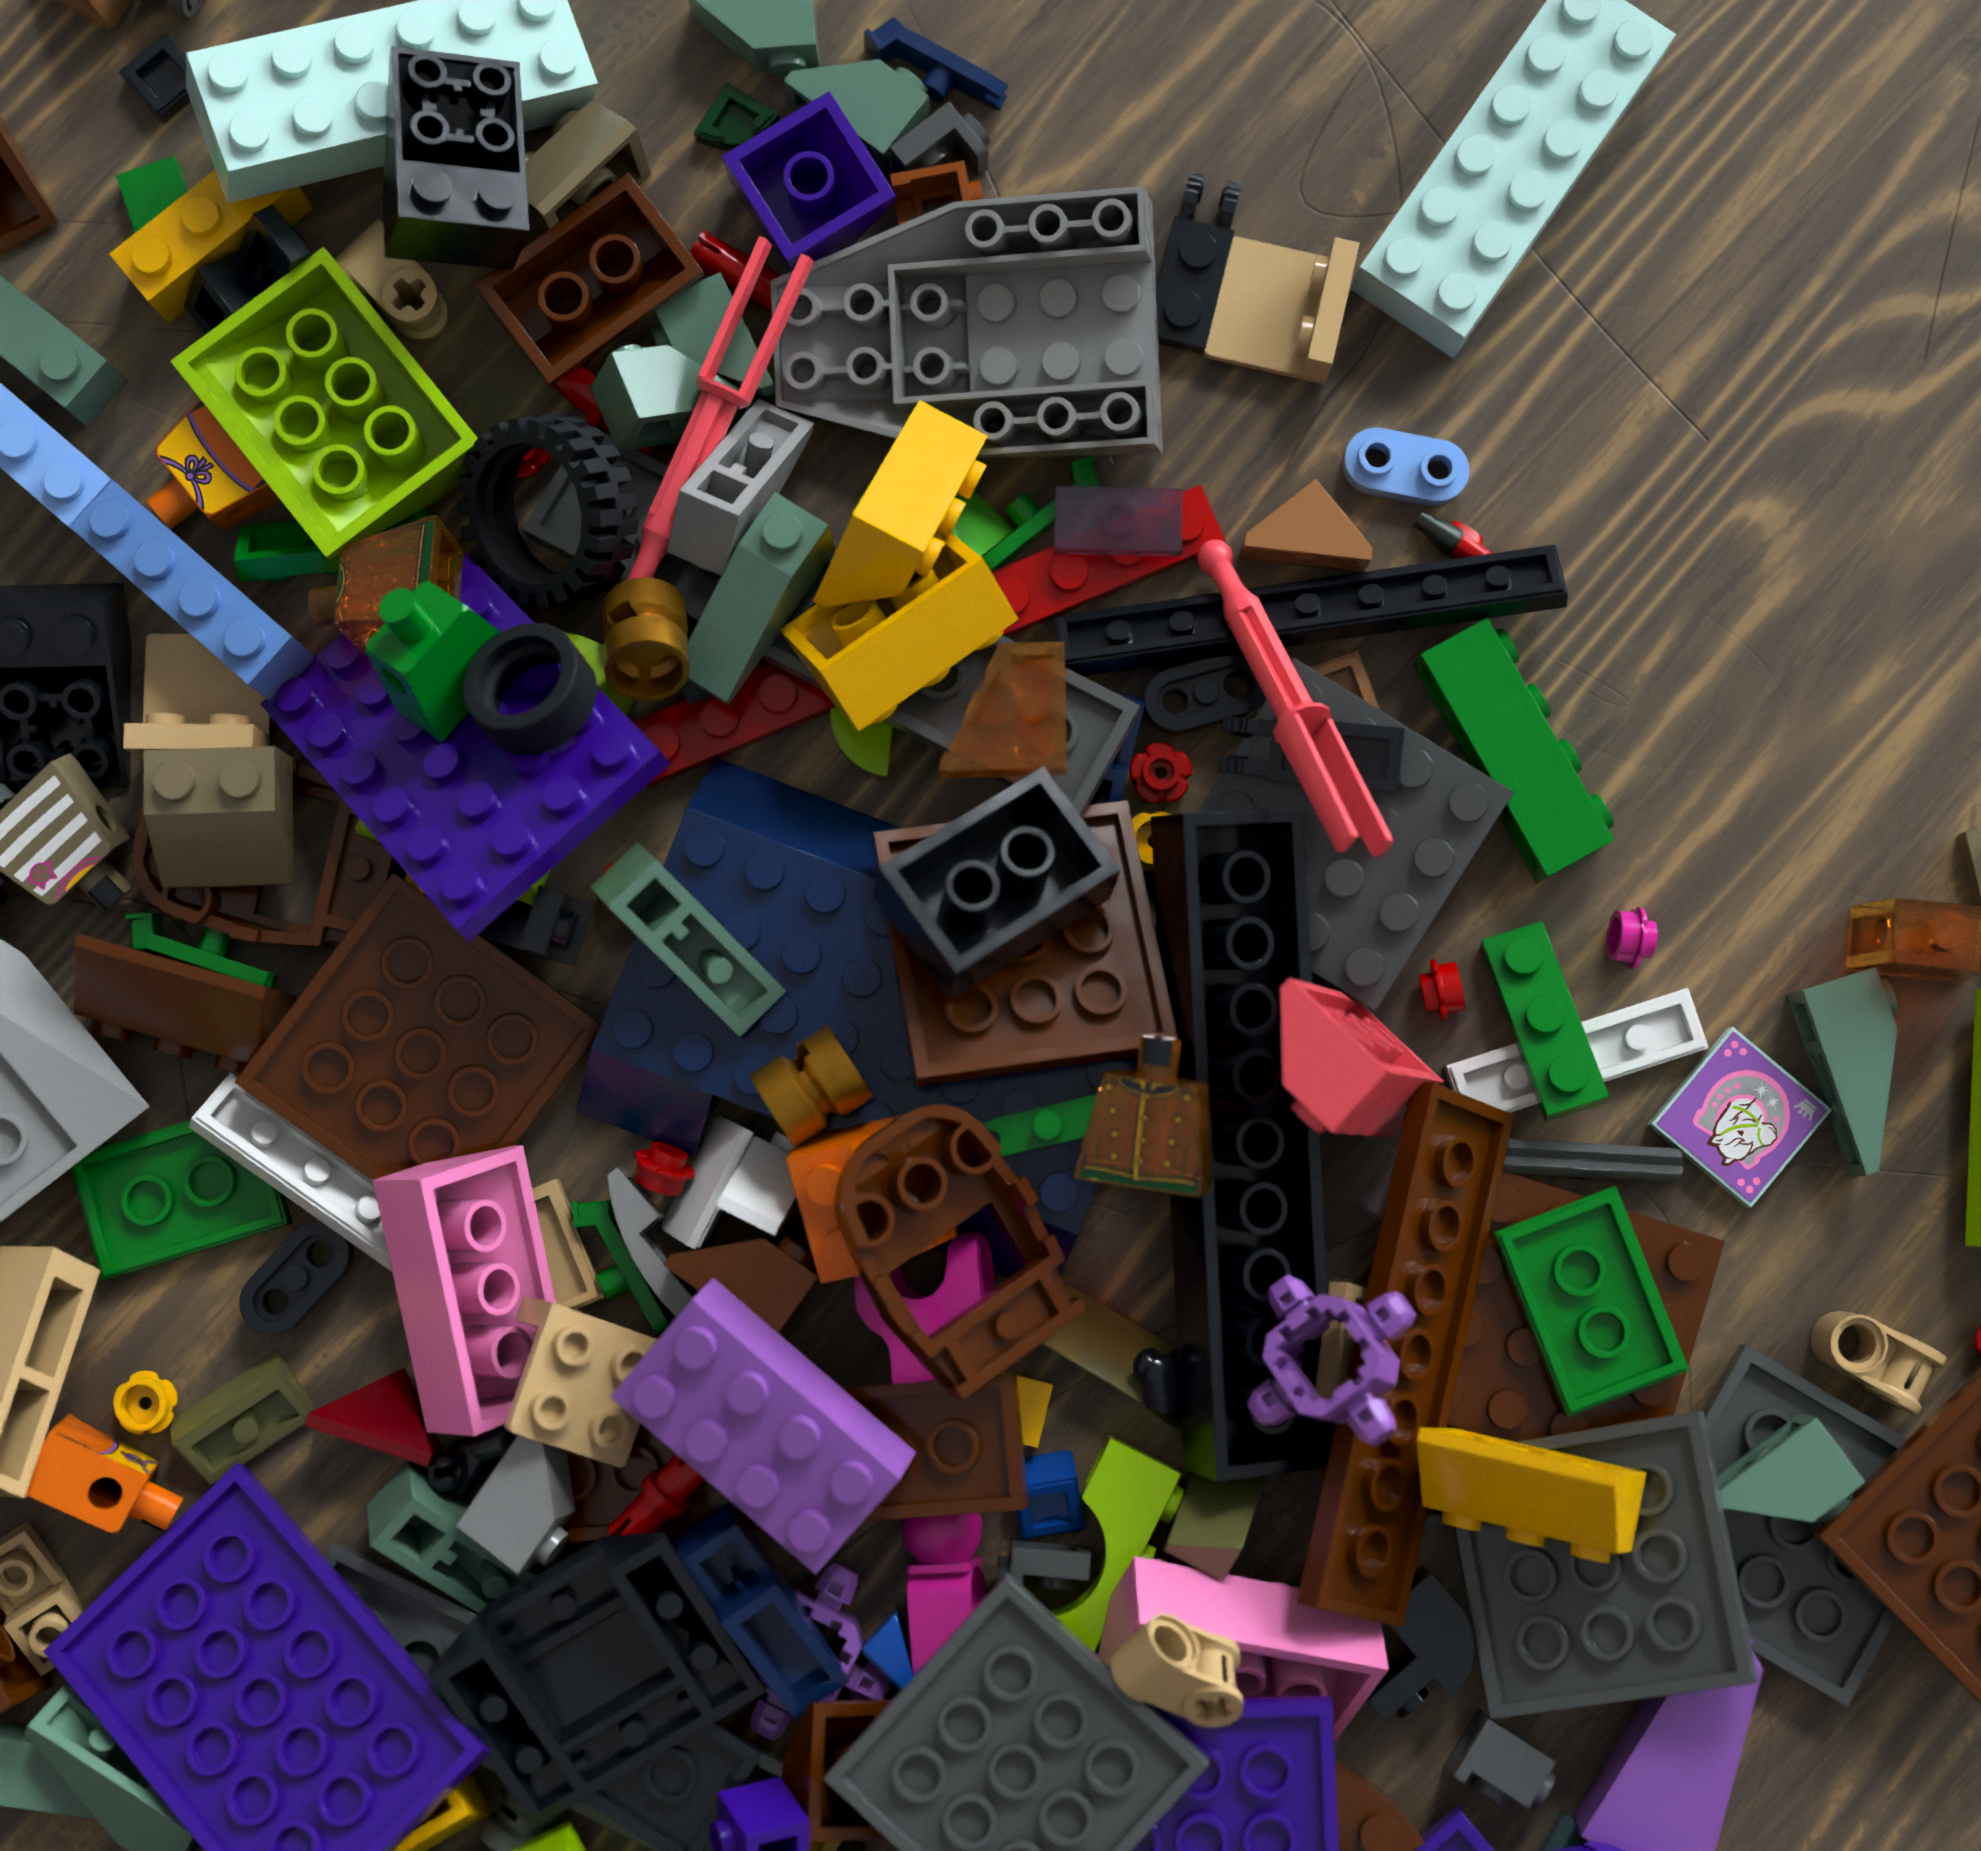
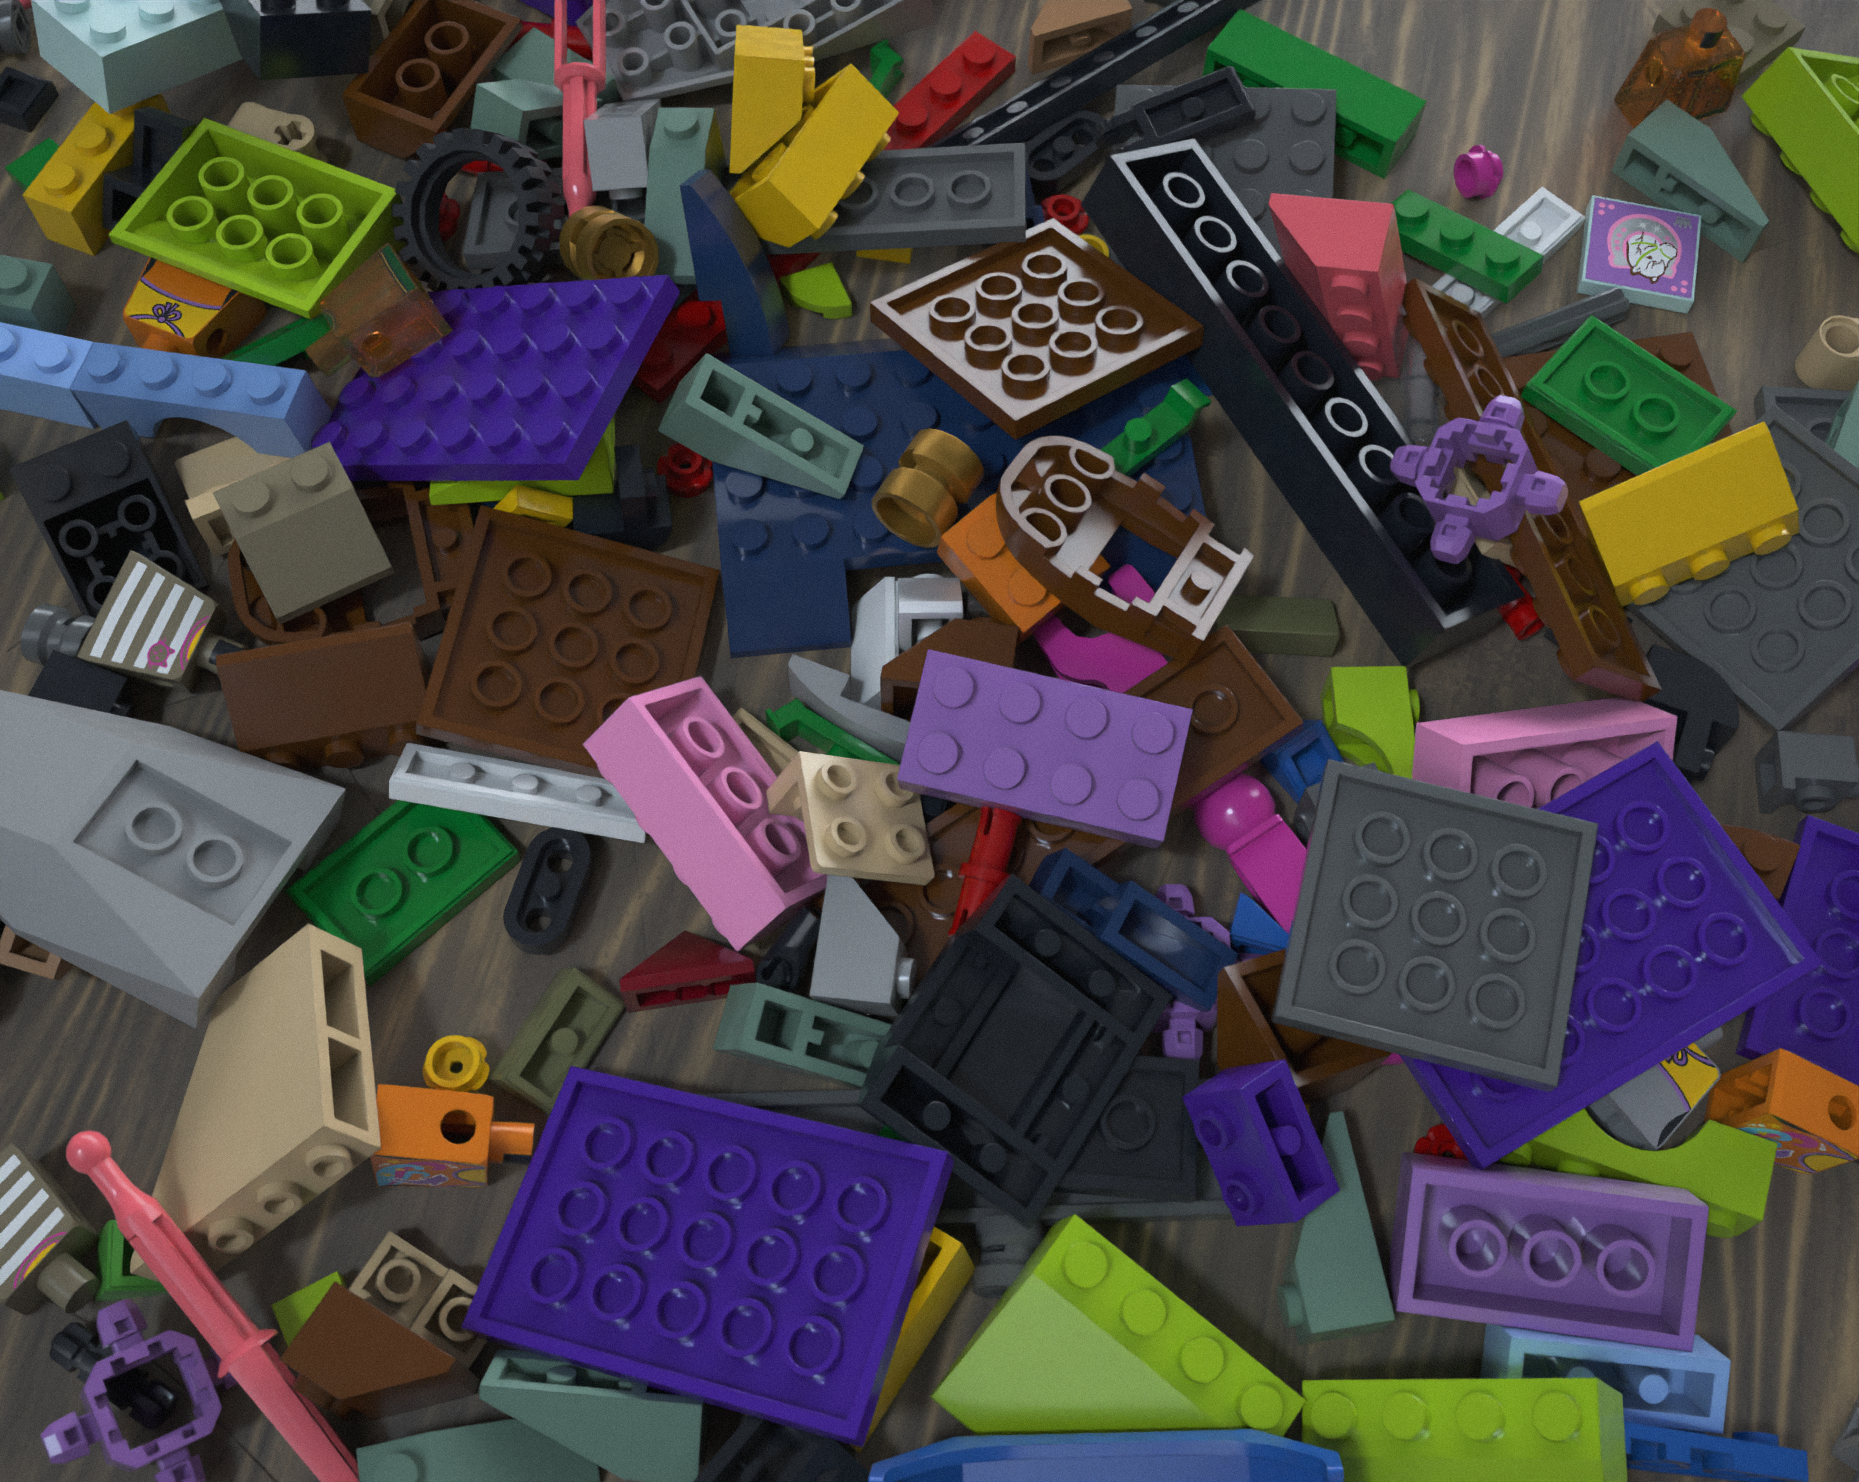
camera: 30 degrees left, 20 degrees down
(425, 654) = (439, 306): green torso -> none
(508, 657) = (533, 290): black tyre -> none
(663, 1169) = (832, 650): red plate -> none
(767, 709) = (733, 268): none -> dark blue slope
(995, 883) = (992, 267): black brick -> none
(1015, 716) = (937, 178): clear orange wing -> none
(1118, 521) = (930, 63): clear purple plate -> none
(1149, 1126) = (1227, 373): clear orange torso -> none
(1160, 1385) = (1351, 620): black arm -> none
(1179, 1668) = (1524, 765): tan piece -> none
(1213, 1522) = (1459, 683): olive slope -> none
(1303, 726) = (1152, 85): coral piece -> none

